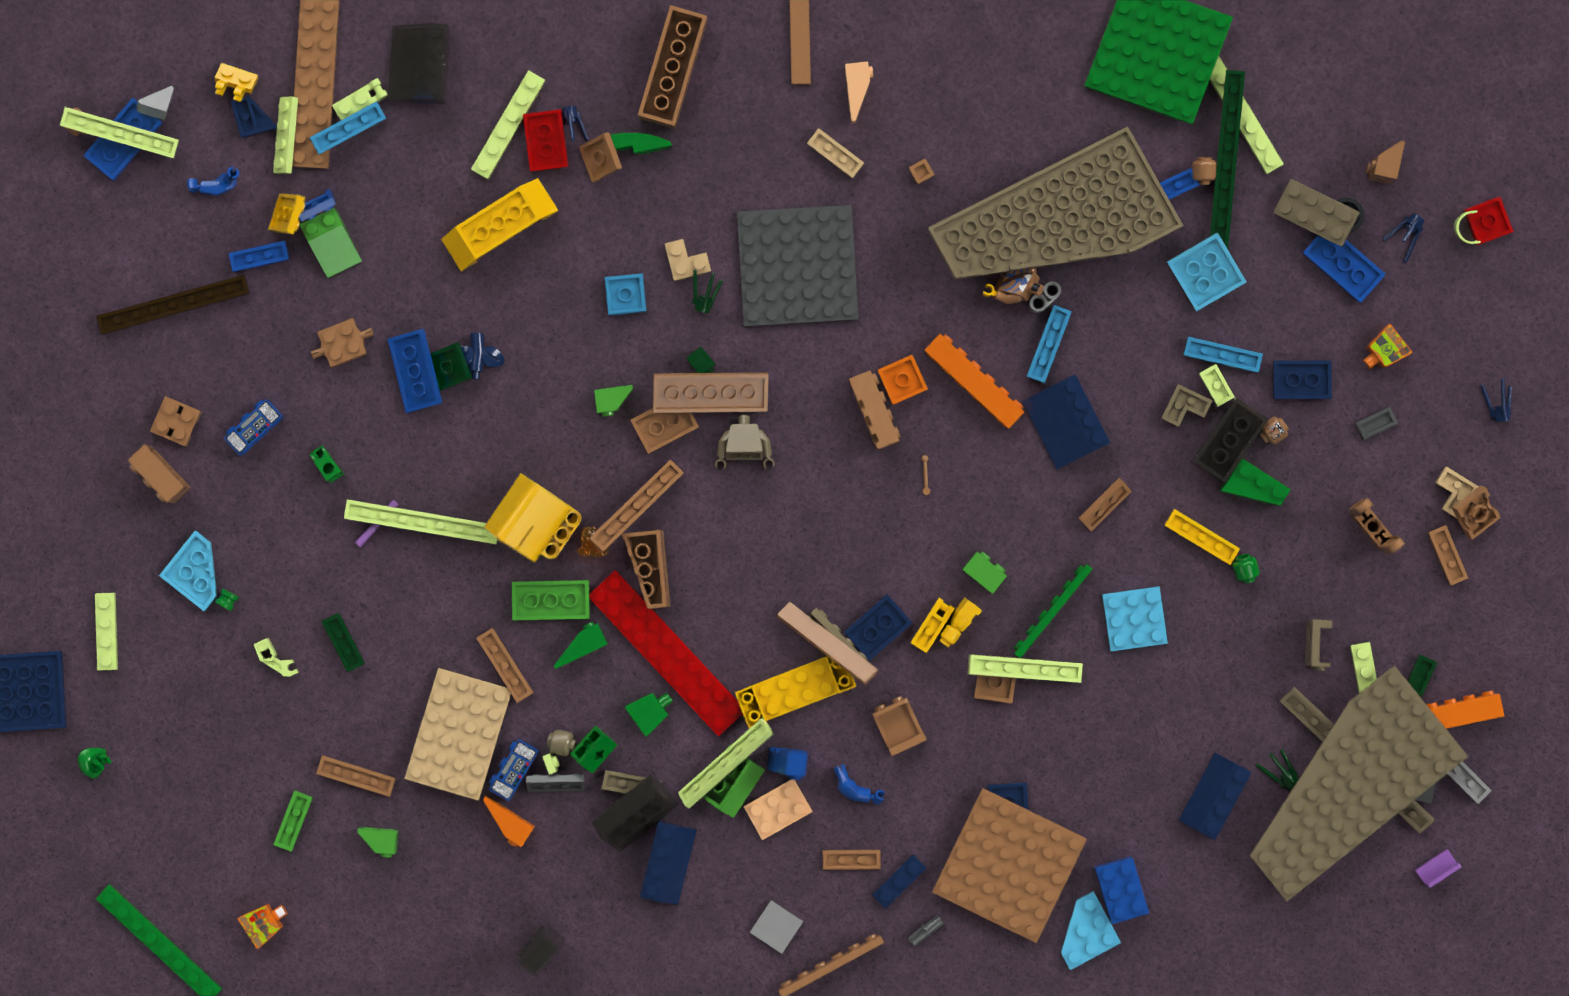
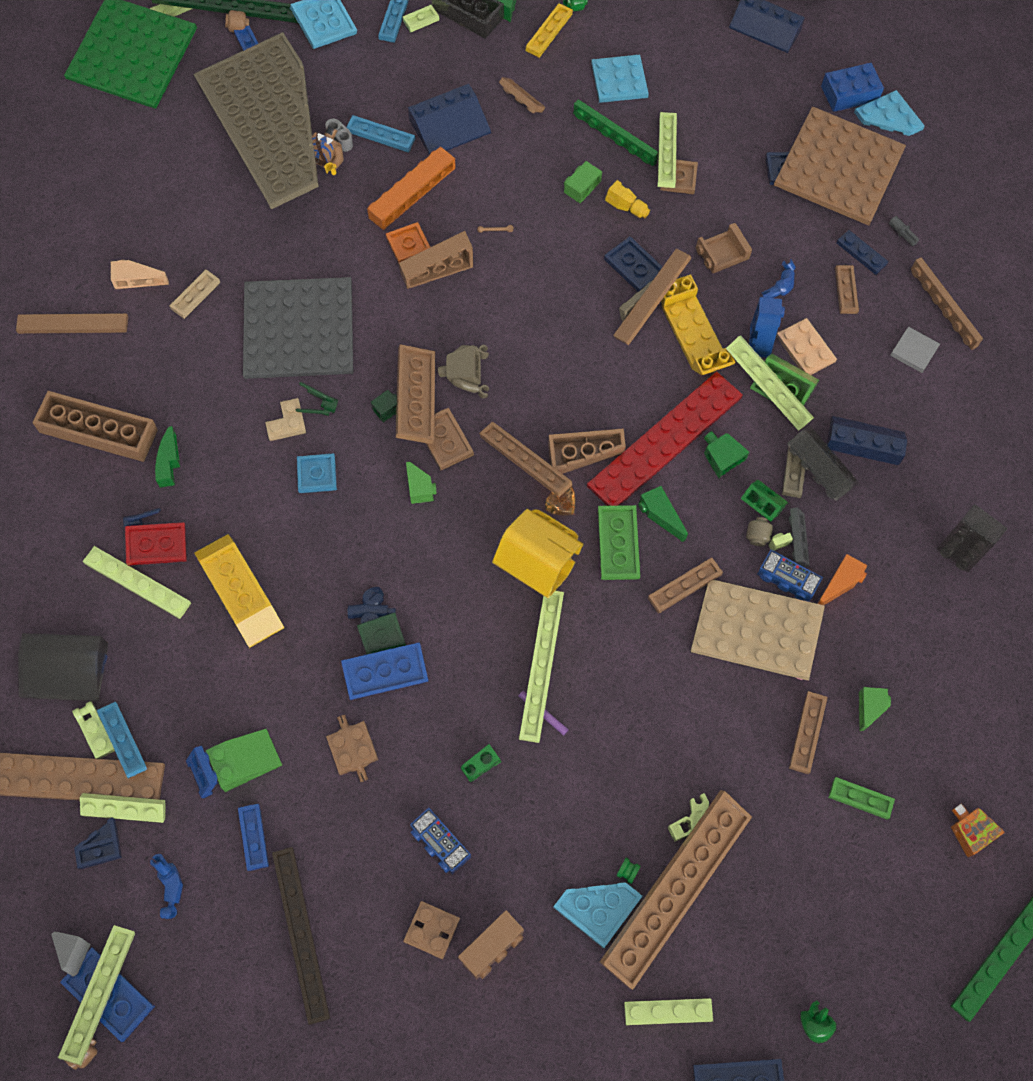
camera: 90 degrees left, 20 degrees down
(210, 643) = (675, 890): none -> medium nougat plate
(235, 78) = (54, 862): yellow plate -> none
(287, 213) = (207, 799): yellow plate -> none
(343, 642) = (669, 745): dark green plate -> none
(600, 157) = (177, 491): medium nougat plate -> none
(921, 171) = (218, 226): medium nougat plate -> none
(932, 626) = (631, 223): yellow plate -> none
(1182, 401) = (434, 41): dark tan plate -> none

